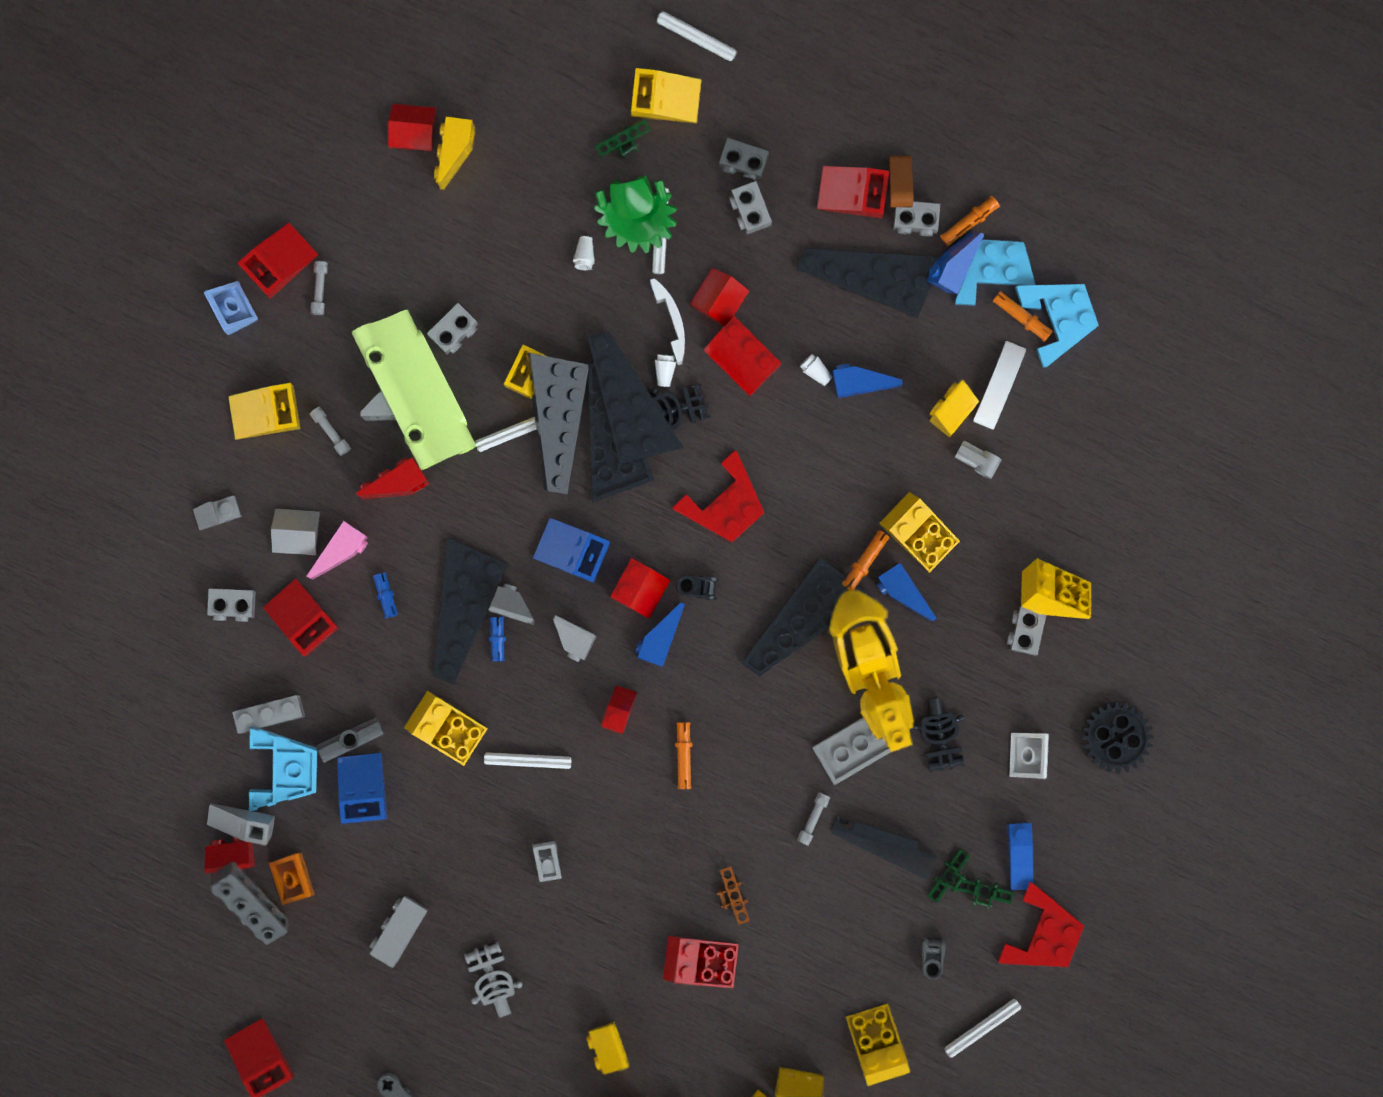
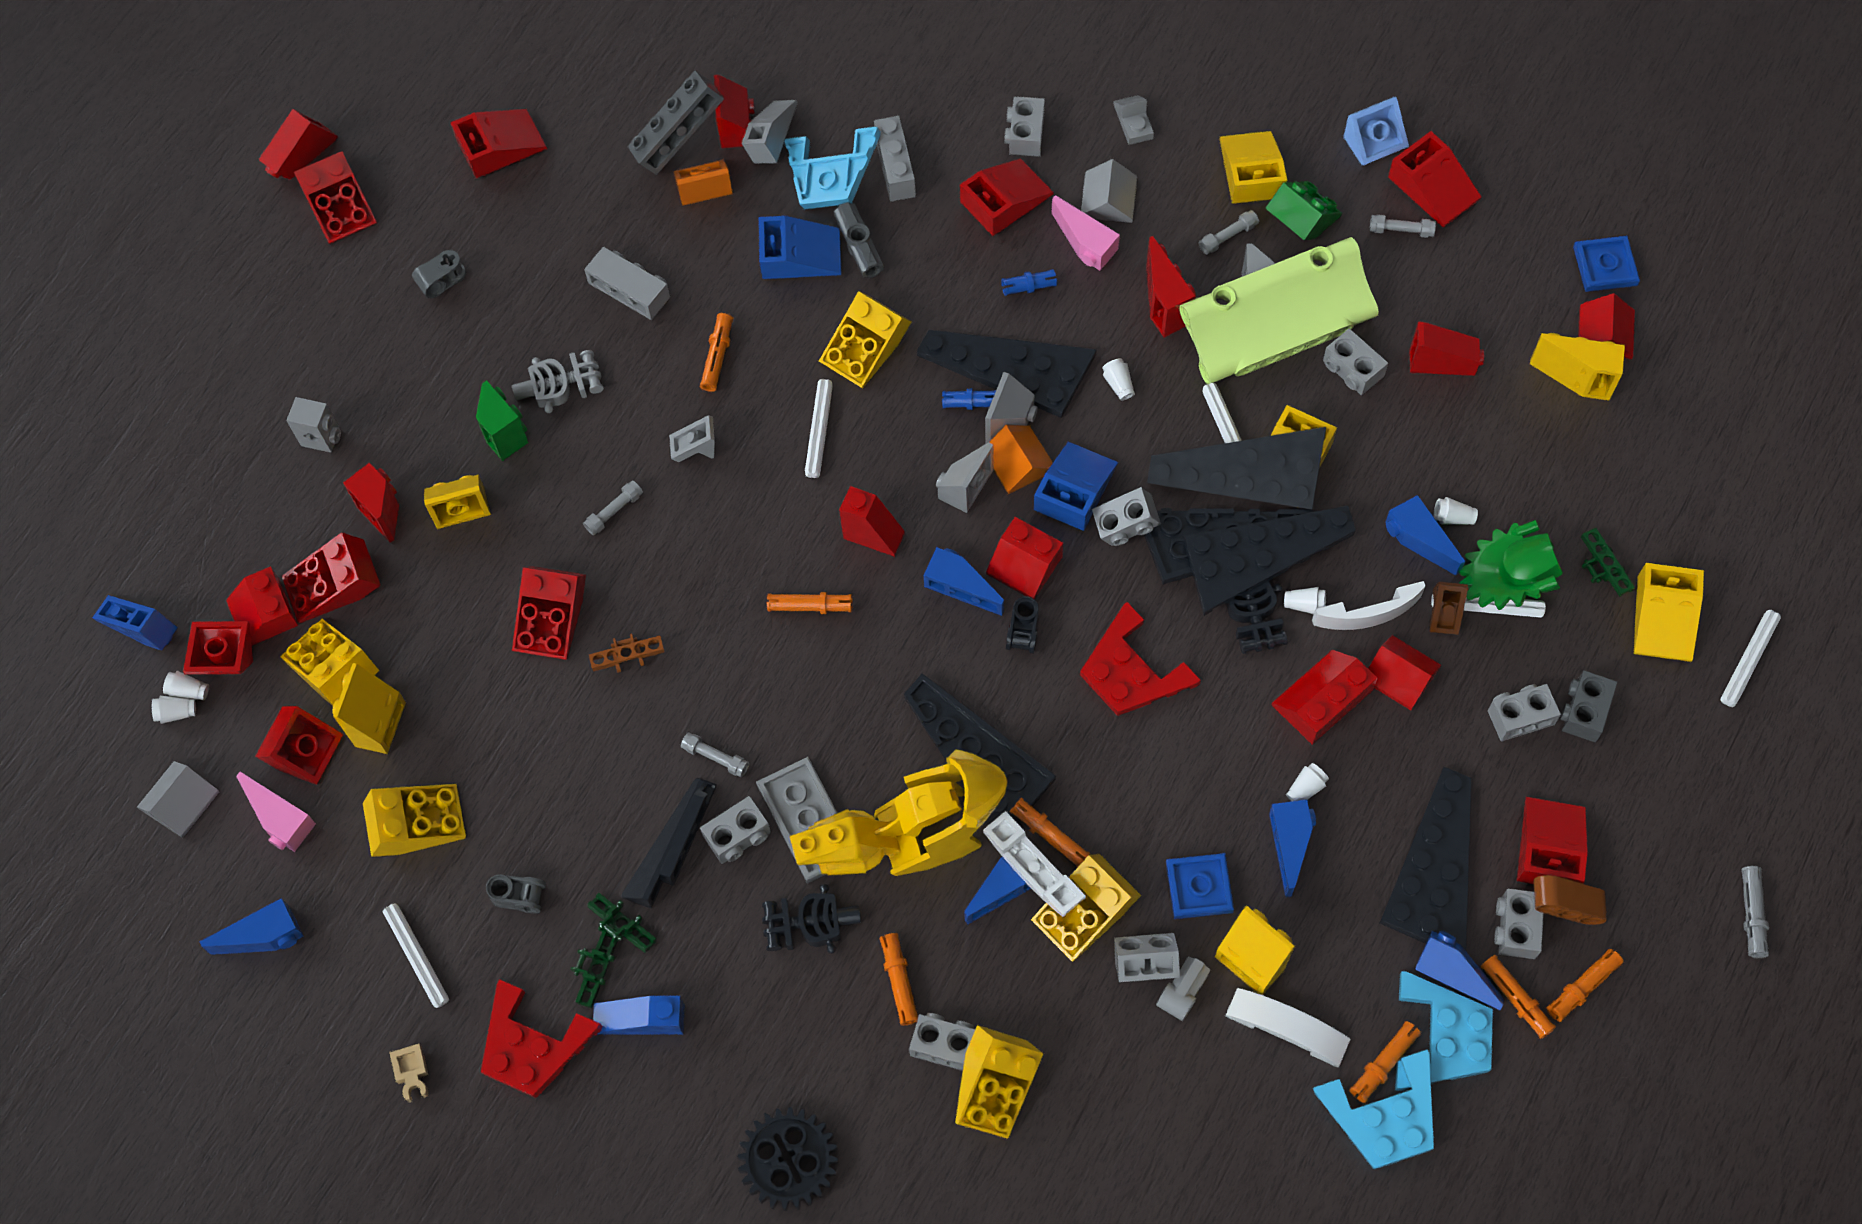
camera: 95 degrees right, 20 degrees down
(308, 368) = (1303, 209): none -> green slope
(351, 124) = (1606, 263): none -> blue plate
(443, 256) = (1444, 351): none -> red slope
(474, 518) = (1118, 377): none -> white cone
(486, 852) = (723, 326): none -> orange pin
(541, 1022) = (500, 422): none -> green slope
(548, 597) = (1018, 457): none -> orange slope
(601, 282) = (1421, 533): none -> blue slope
(601, 510) = (1125, 510): none -> light grey brick
(621, 934) = (595, 523): none -> light grey bar
(669, 261) = (1448, 607): none -> reddish brown slope
(870, 800) = (730, 824): none -> light grey brick
(897, 49) = (1755, 923): none -> light grey pin
(899, 449) = (1199, 886): none -> blue plate
(900, 568) = (1032, 865): none -> white slope
(958, 486) = (1146, 957): none -> light grey brick
(966, 180) = (1575, 993): none -> orange pin
(975, 668) = (900, 983): none -> orange pin
(1028, 755) = (772, 1036): white slope -> none
(1067, 1020) = (408, 1068): none -> tan plate

